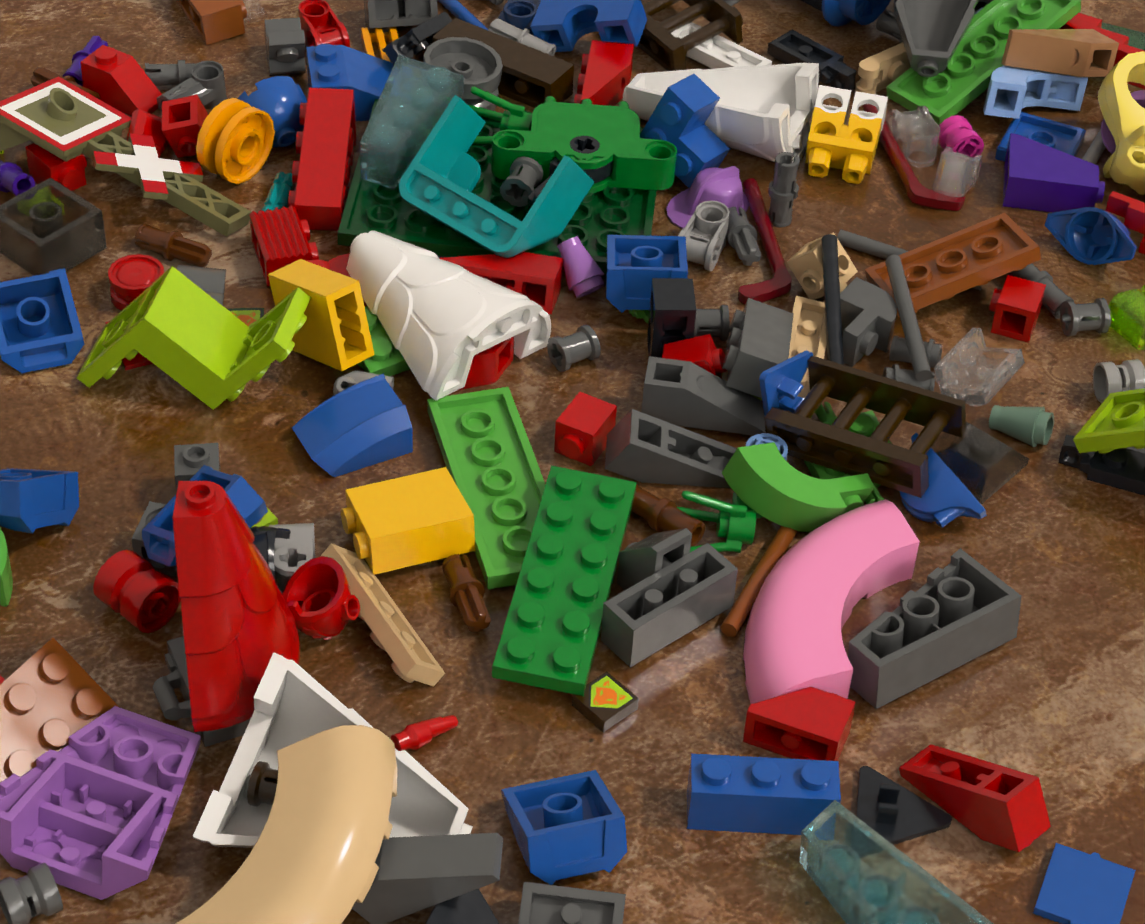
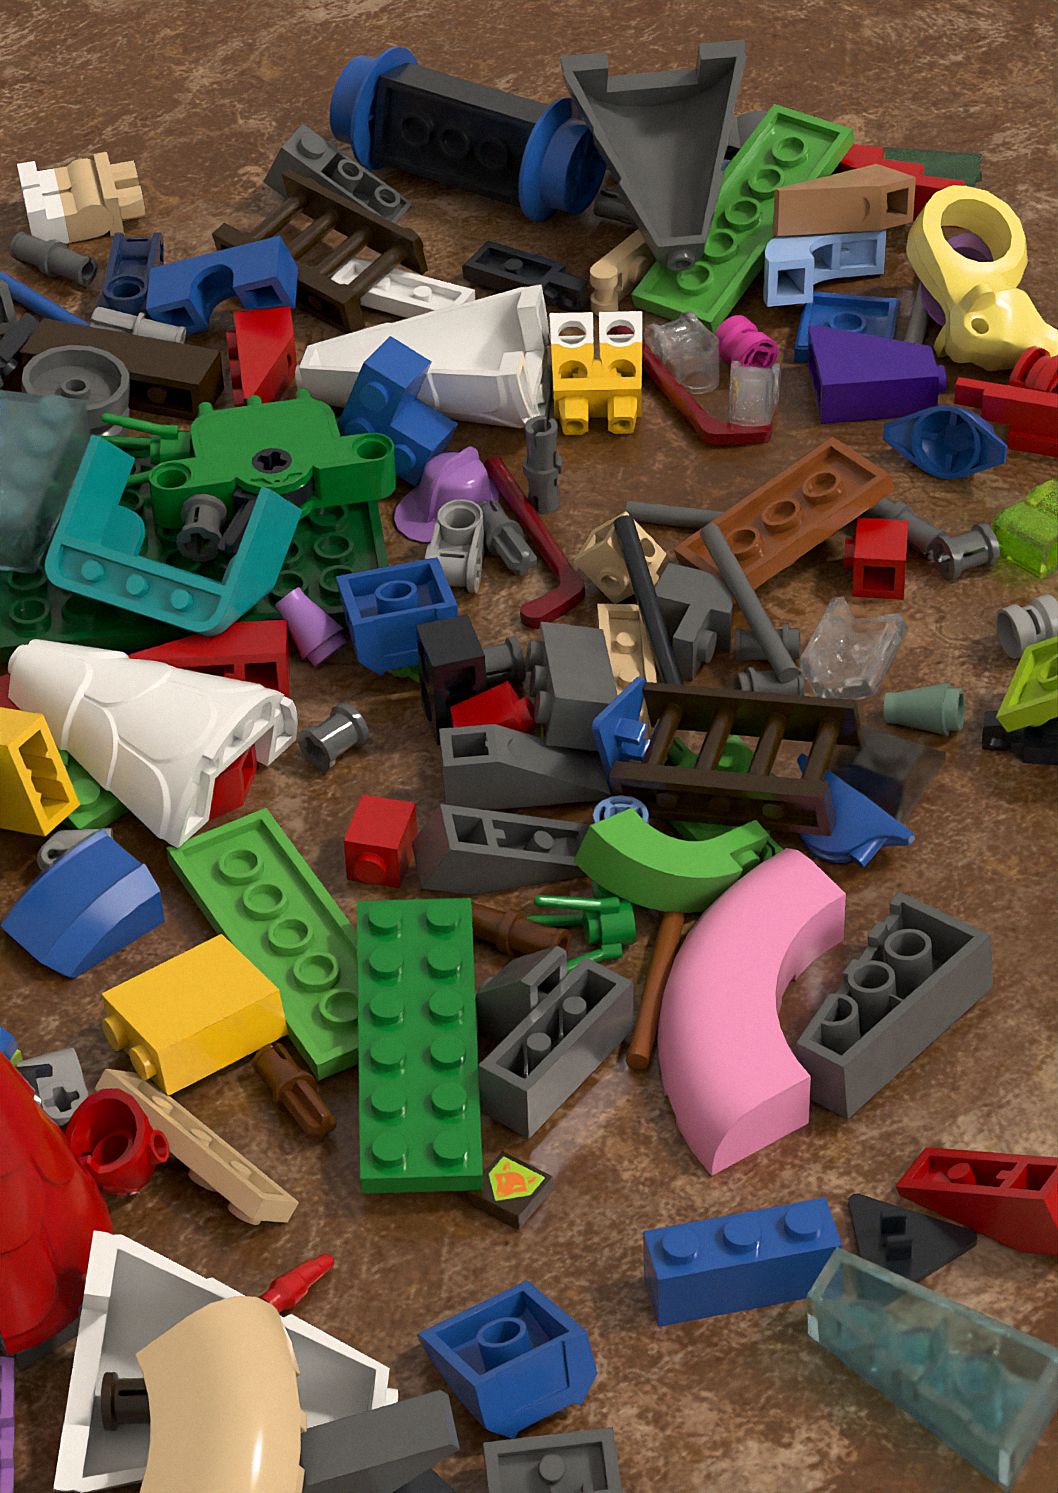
camera: 10 degrees left, 0 degrees up
(801, 724) = (763, 1161): red slope -> none

